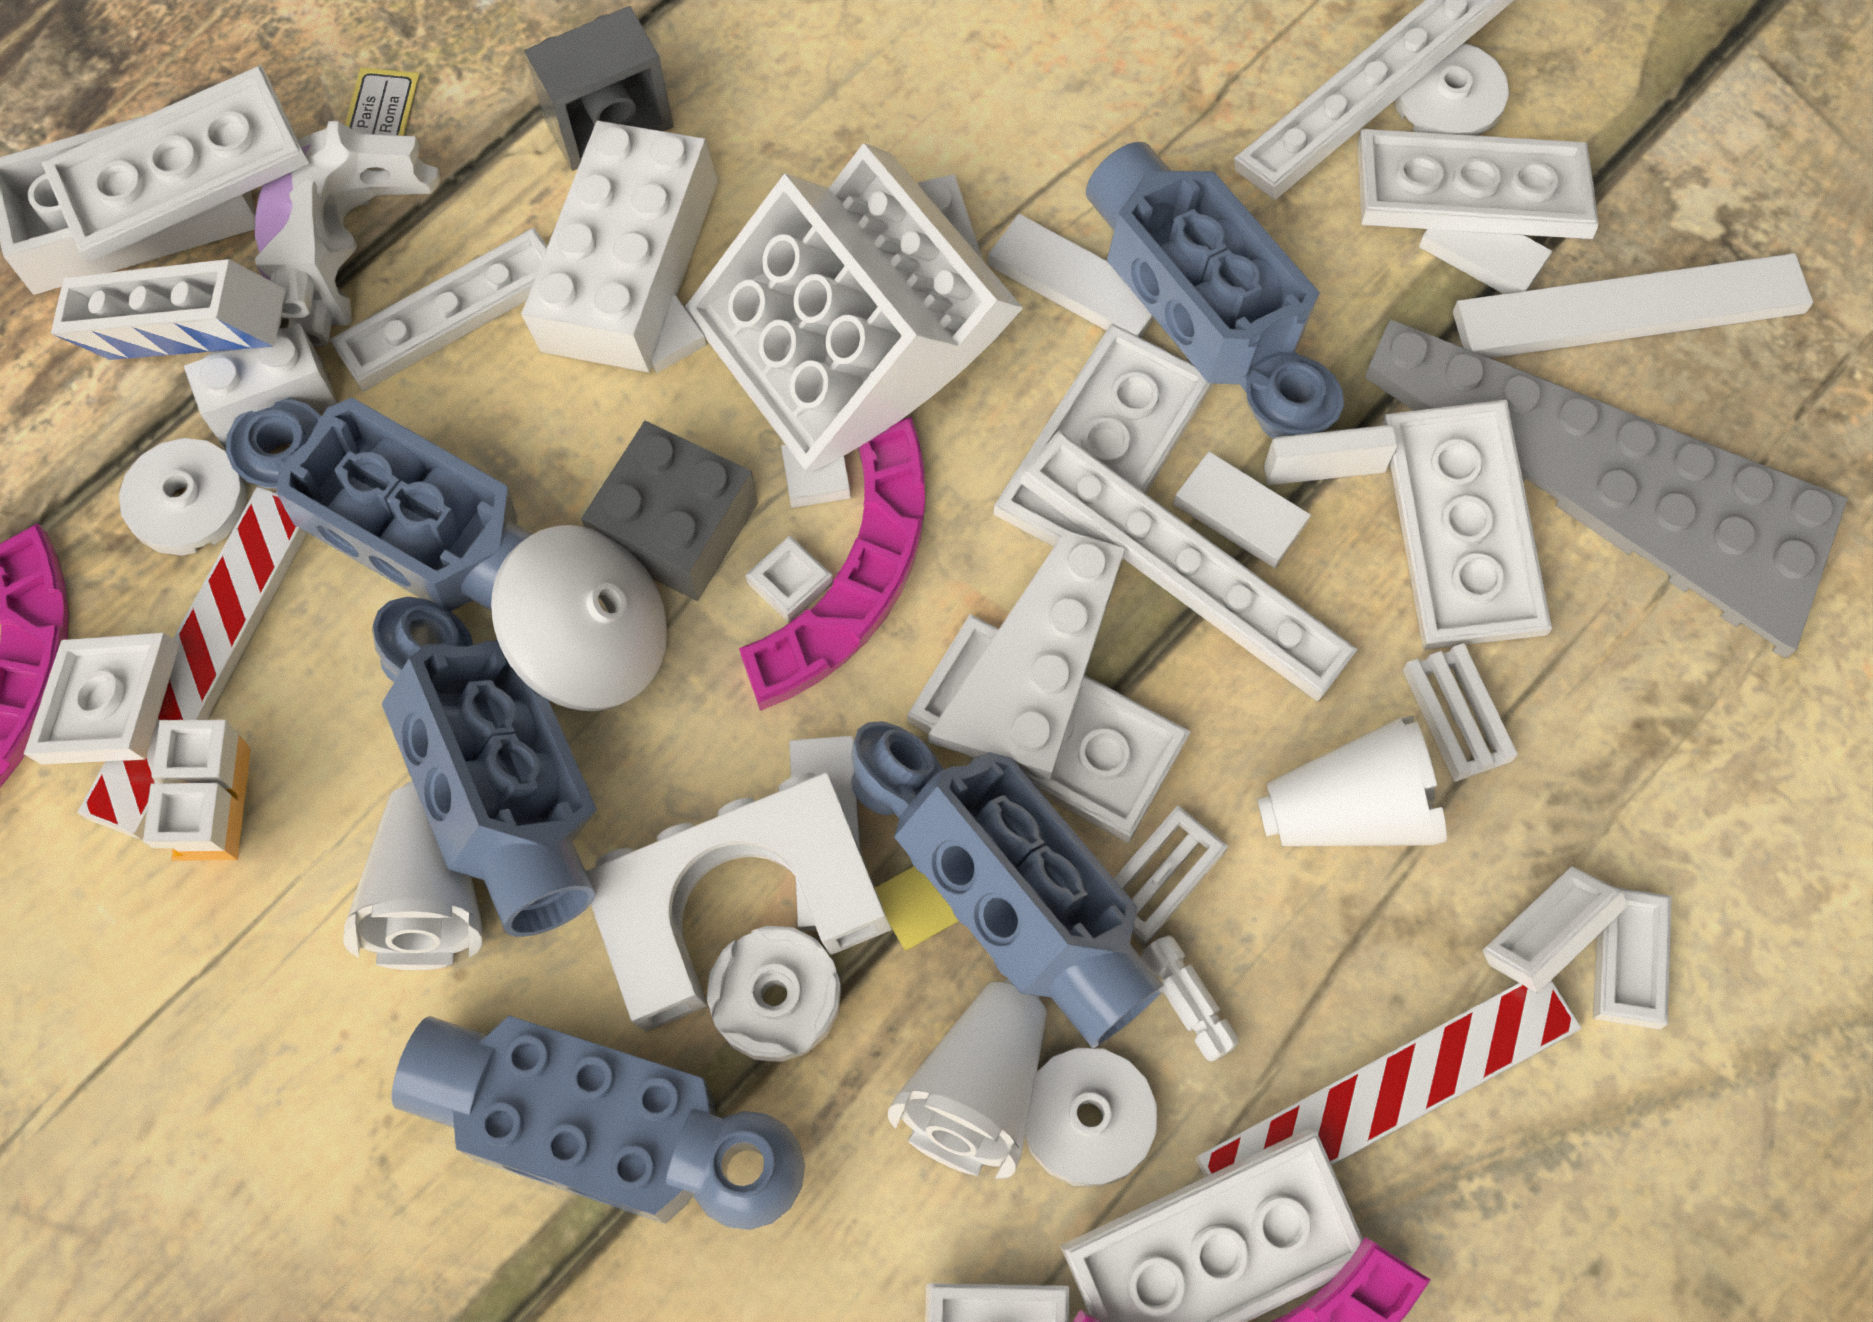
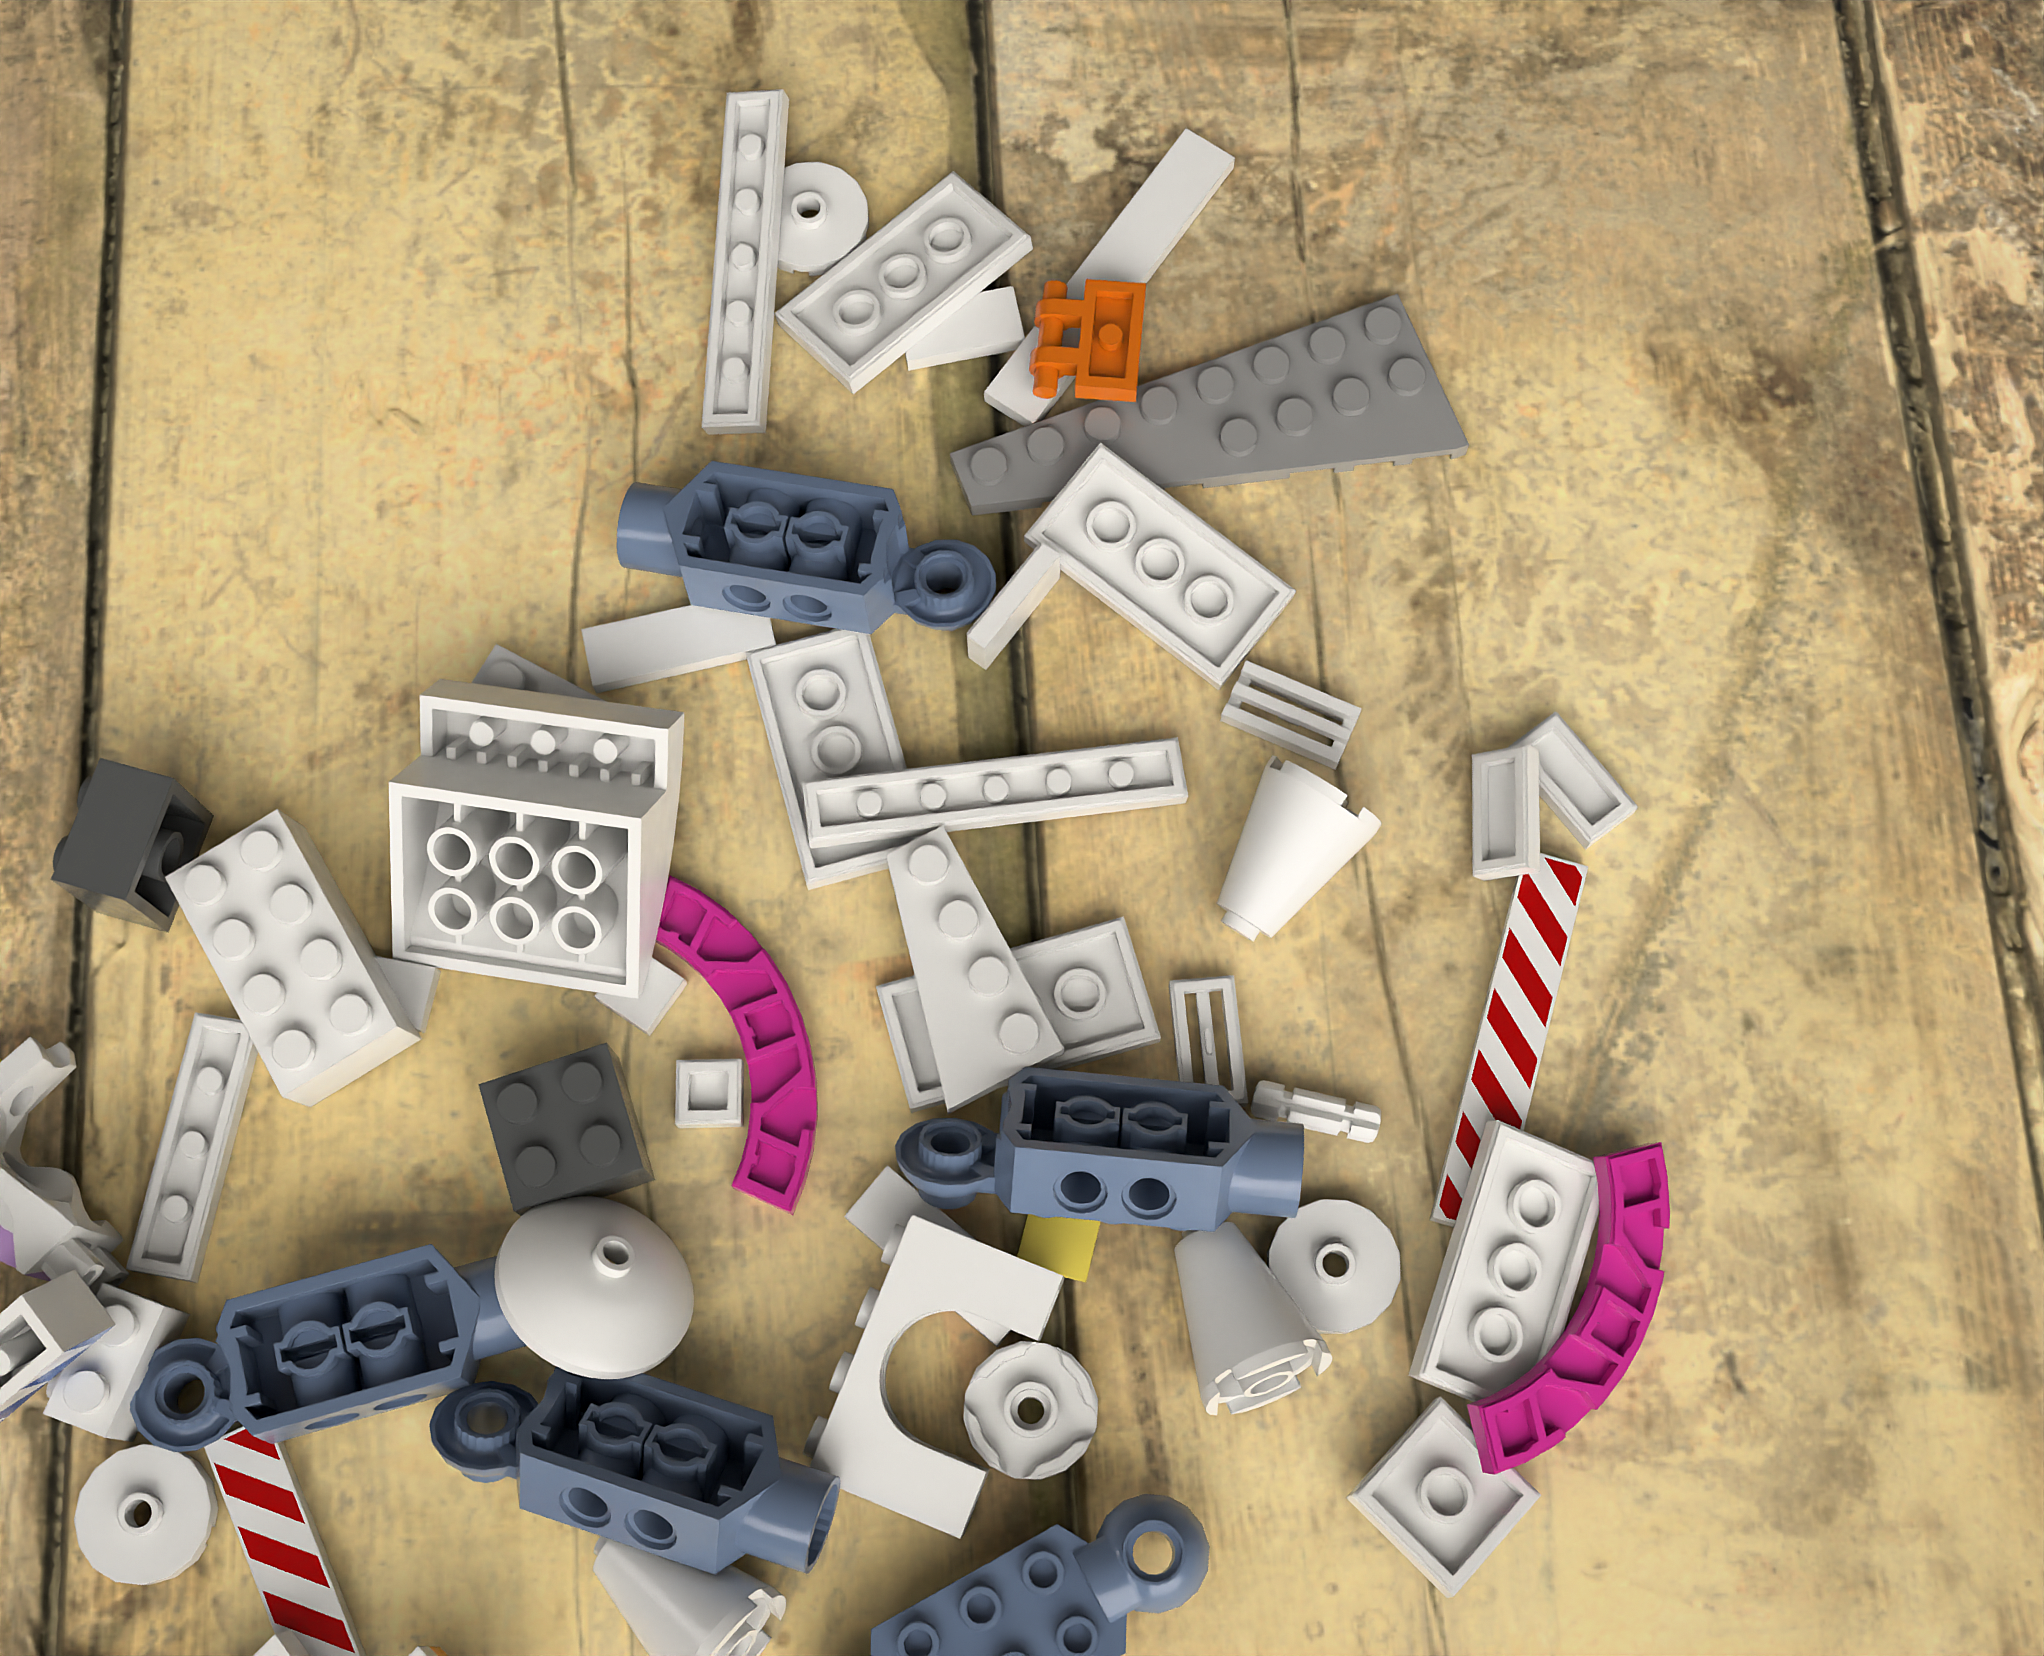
camera: 45 degrees left, 5 degrees up
(1241, 509) = (989, 708): white tile -> none
(1583, 339) = (1108, 344): none -> orange plate

